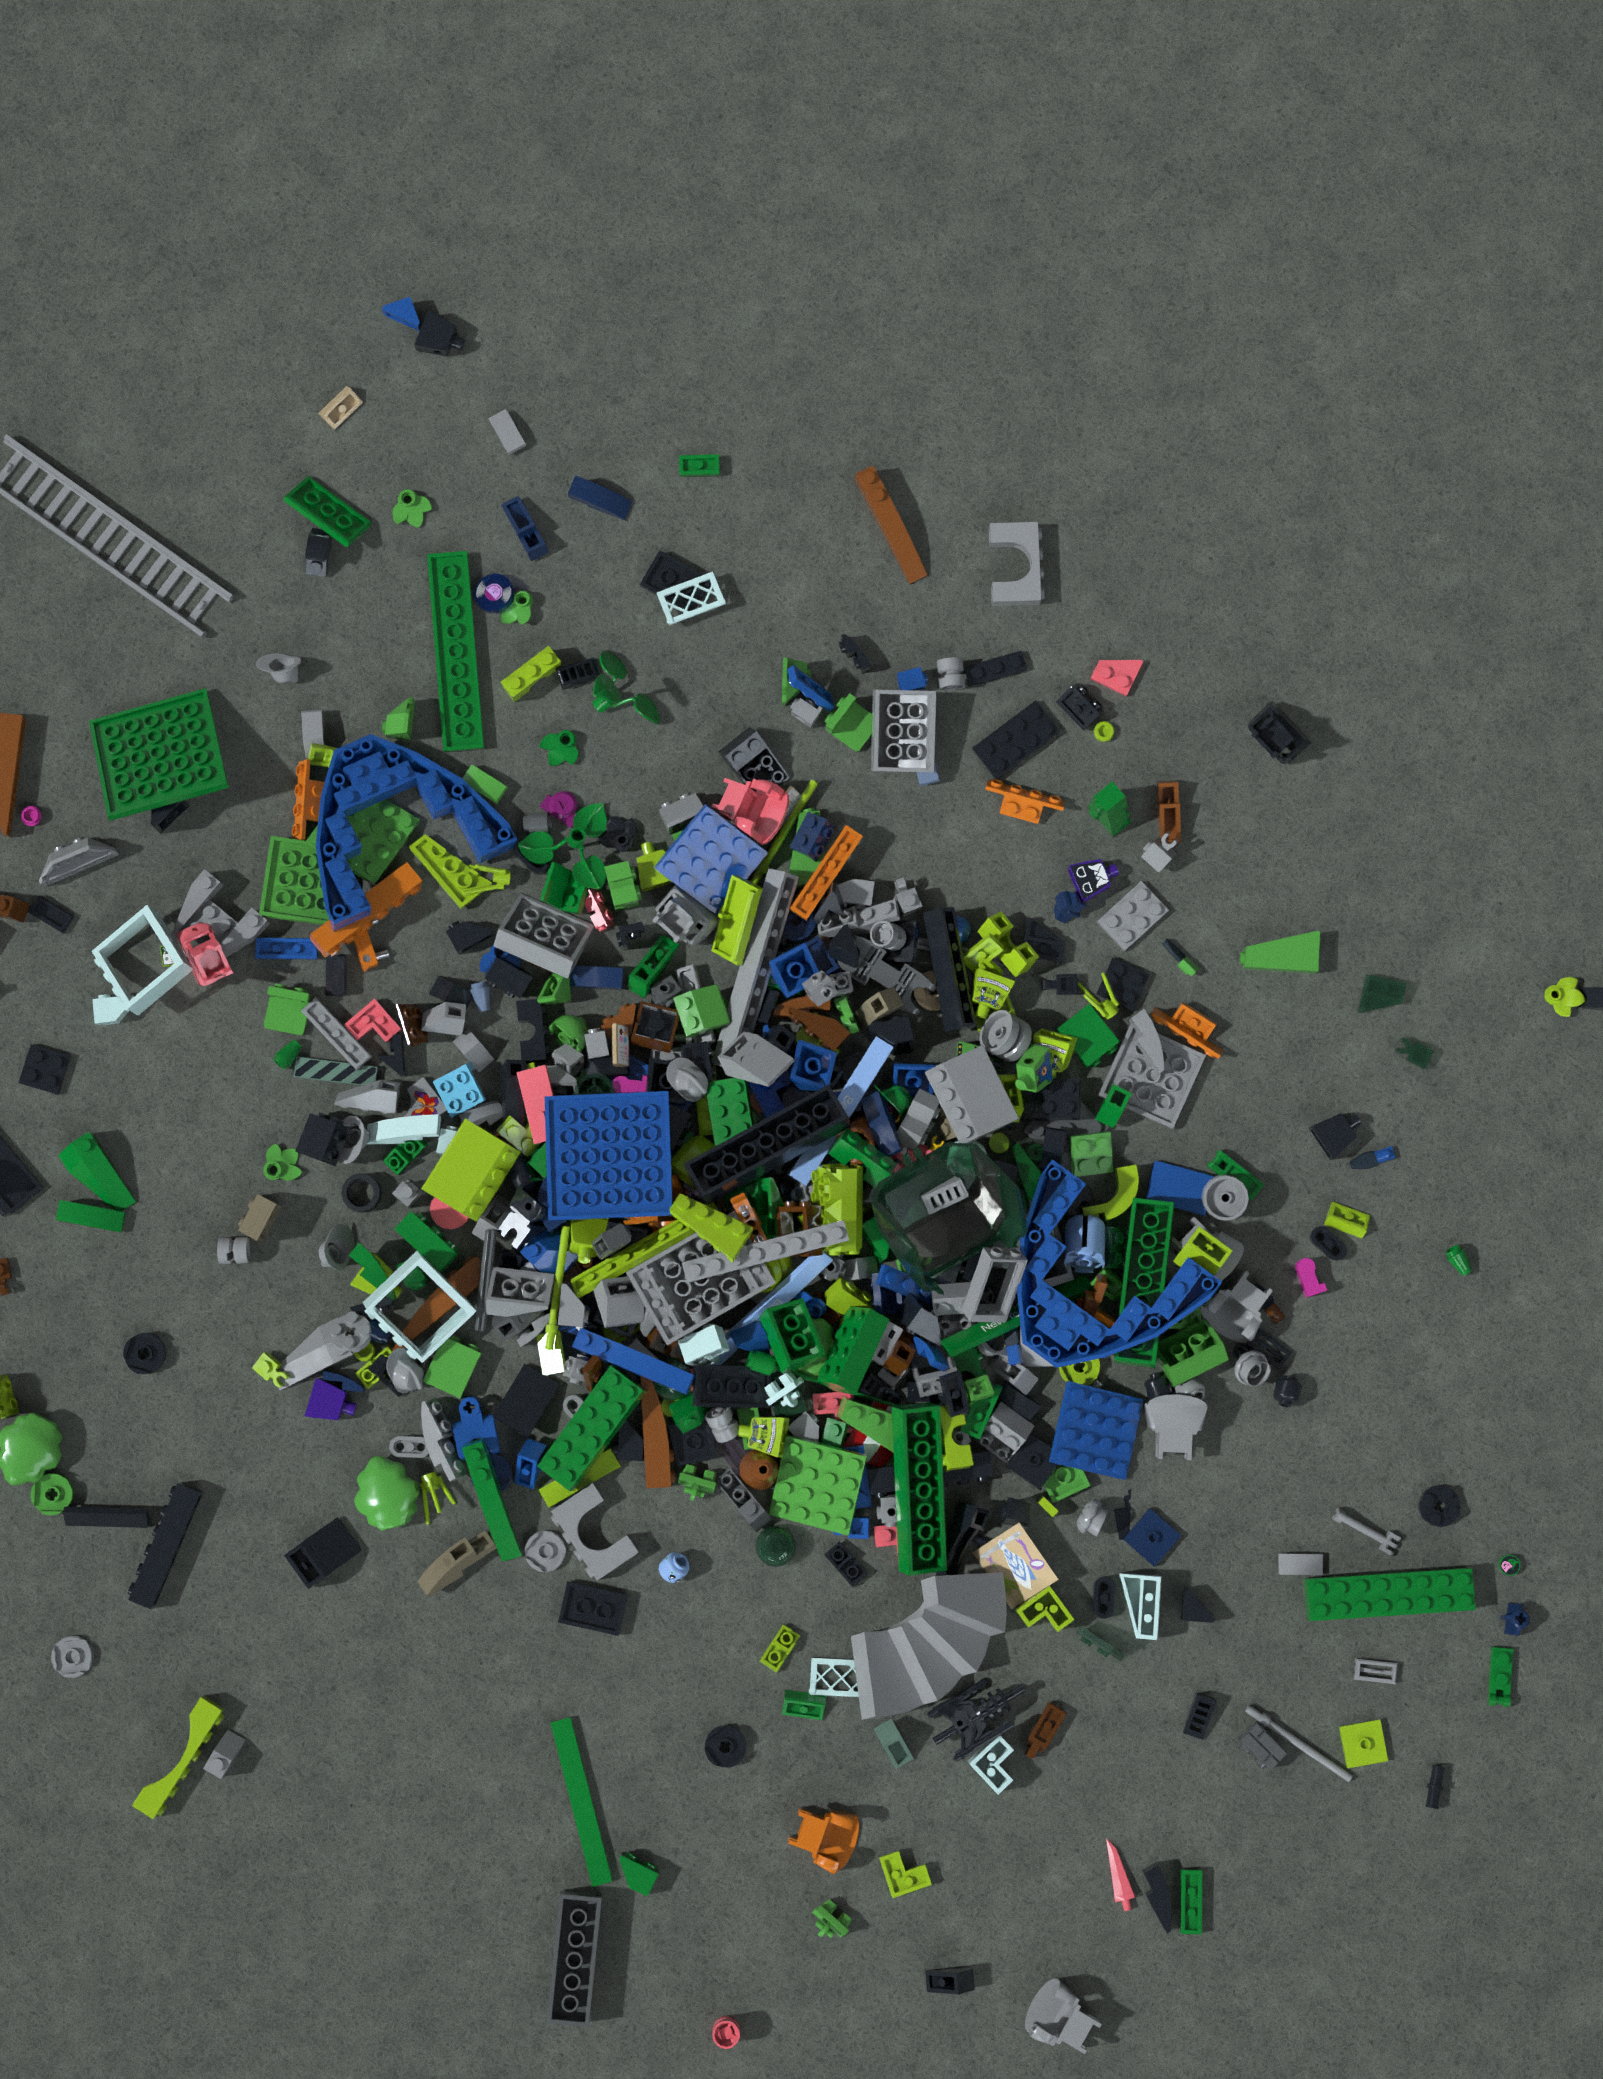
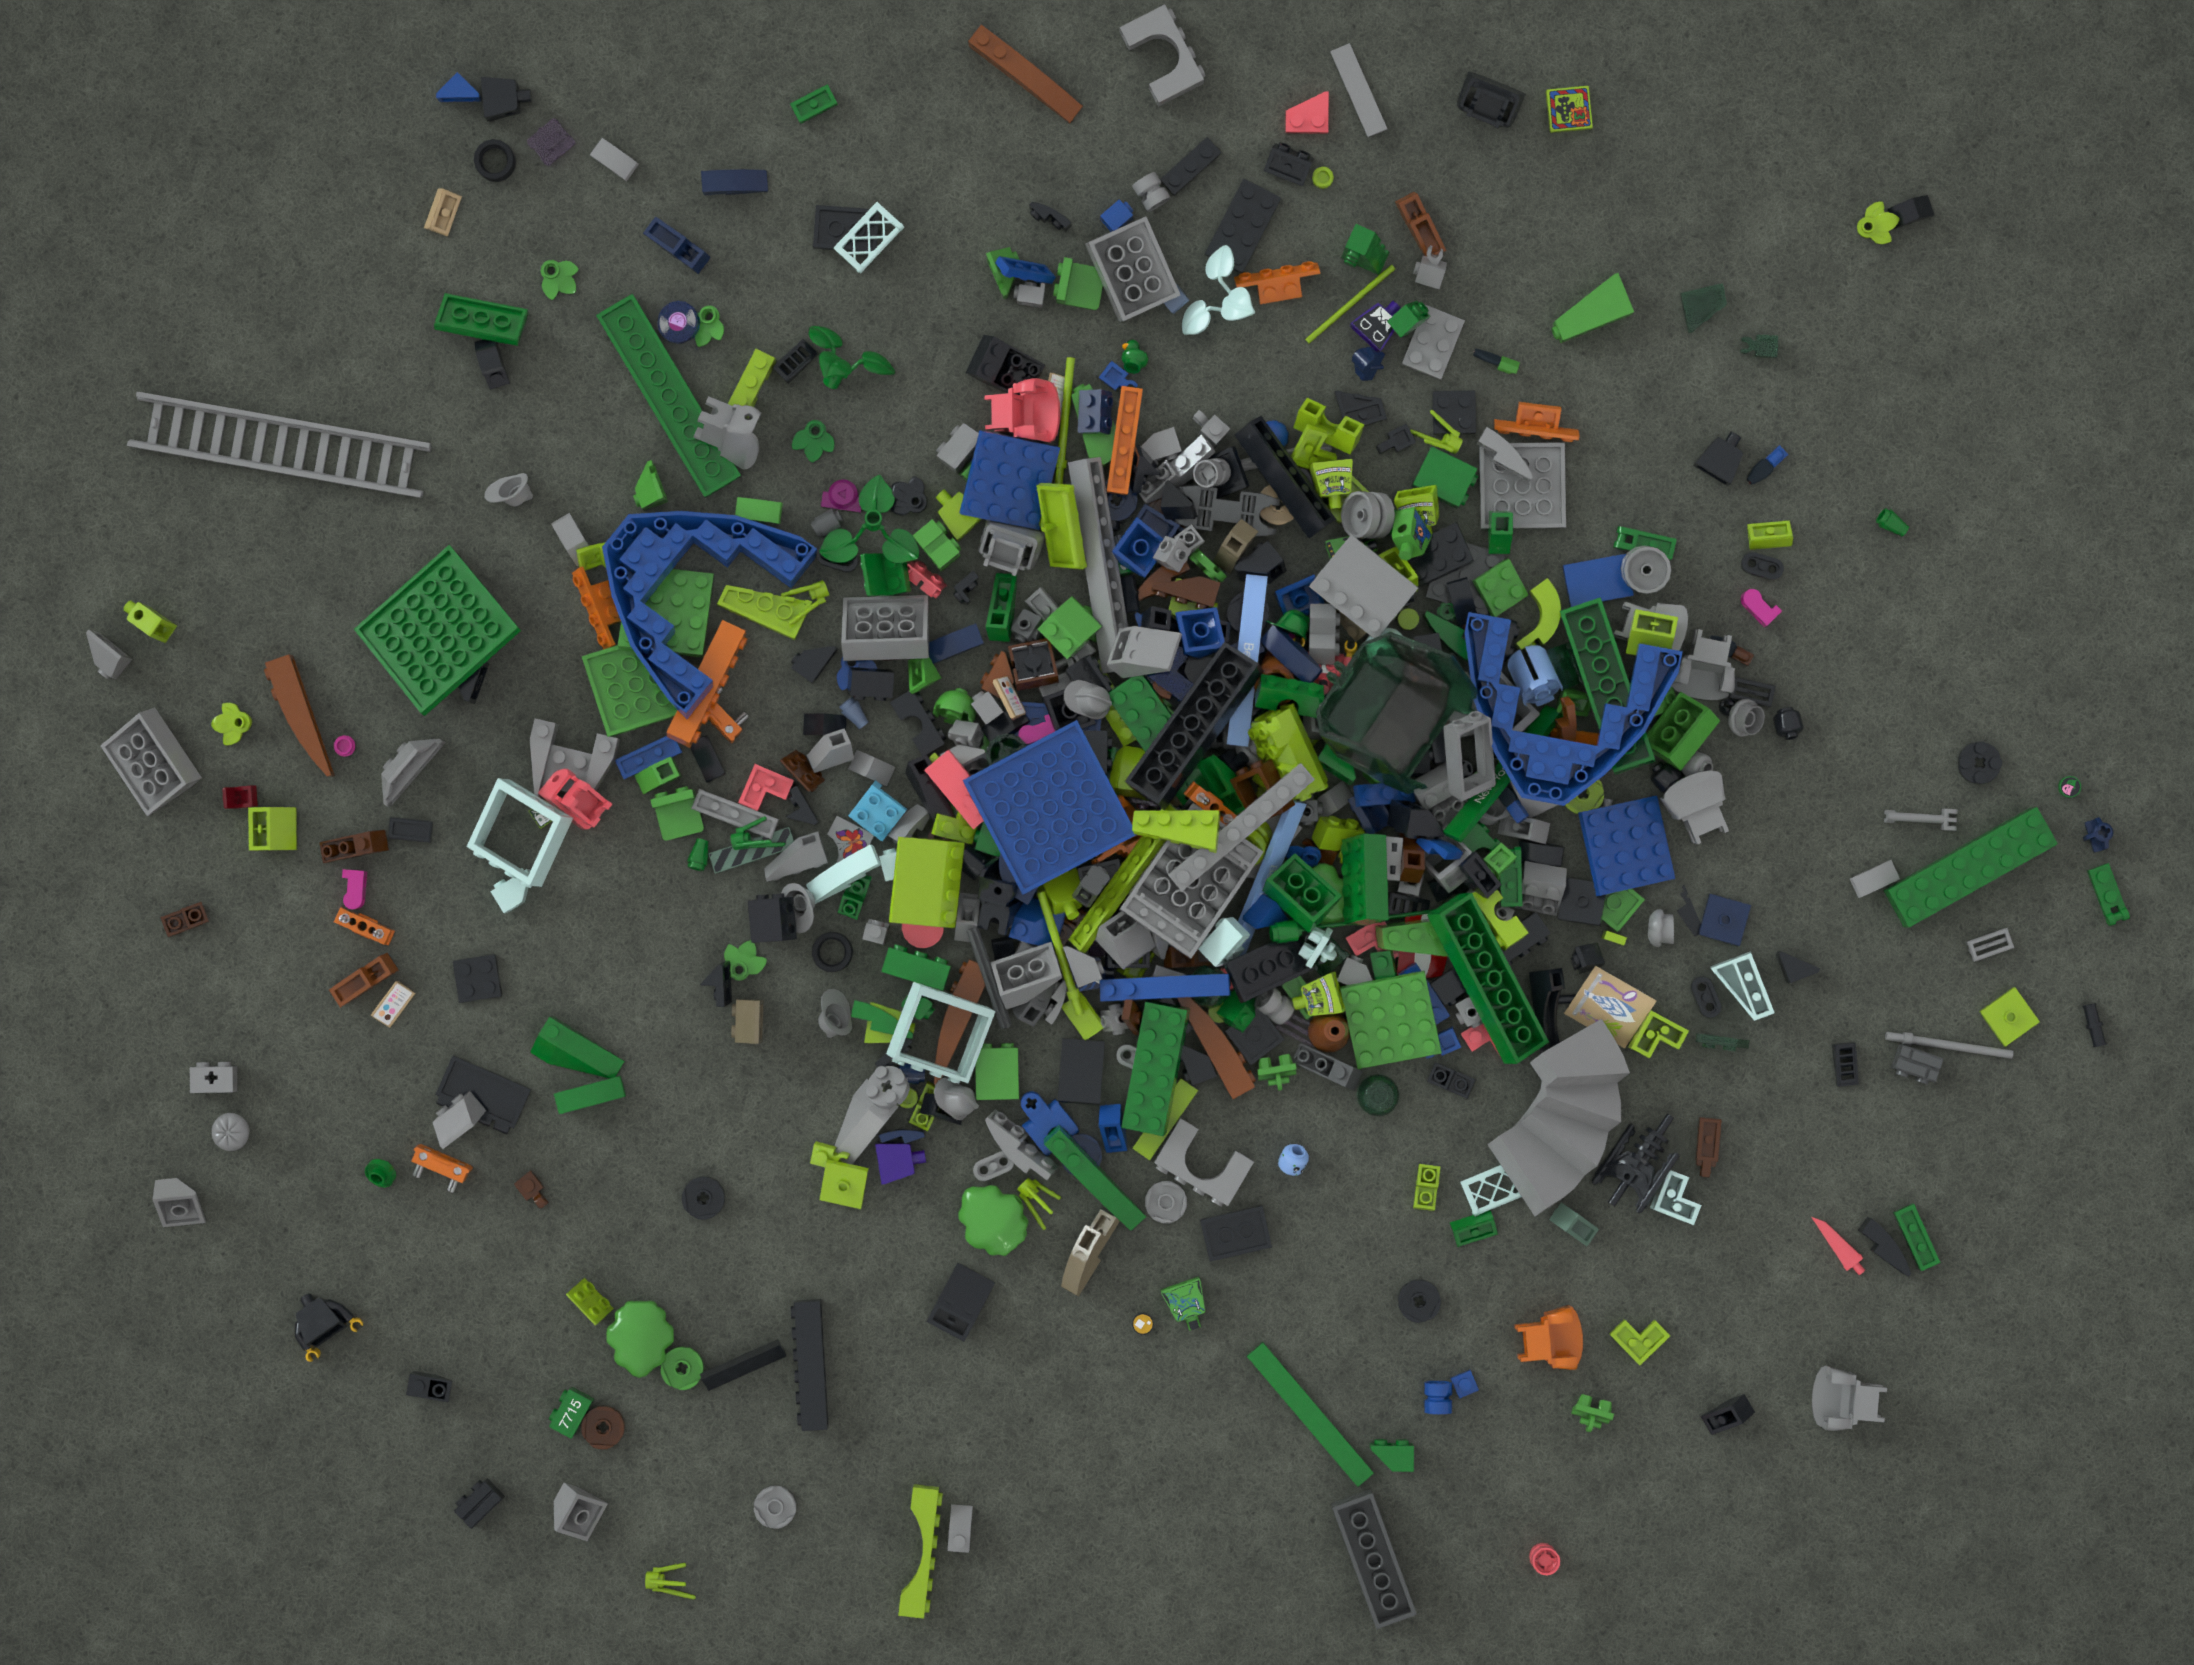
camera: 20 degrees left, 5 degrees up
(233, 1250) = (739, 1062): light grey wheel -> none
(253, 1172) = (721, 979): none -> black slope
(272, 1400) = (844, 1184): none -> lime plate
(286, 968) = (658, 775): none -> bright green slope
(331, 1060) = (743, 840): none -> green plant
(401, 370) = (498, 144): none -> black tyre
(460, 392) = (551, 142): none -> clear purple piece
(473, 1649) = (1142, 1323): none -> tile
(492, 705) = (731, 431): none -> light grey piece
(519, 1648) = (1185, 1301): none -> bright green torso
(700, 1841) = (1438, 1397): none -> blue wheel
(730, 1840) = (1464, 1384): none -> blue plate
(845, 815) = (1115, 377): none -> blue plate
(868, 806) = (1133, 357): none -> green animal
(947, 1201) = (1397, 685): light grey slope -> none
(974, 803) = (1234, 306): none -> light aqua plant
(1076, 849) = (1348, 305): none -> lime axle
(1121, 884) = (1409, 318): none -> green slope
(1169, 672) = (1358, 90): none -> light grey piece
(1343, 773) = (1569, 109): none -> tile

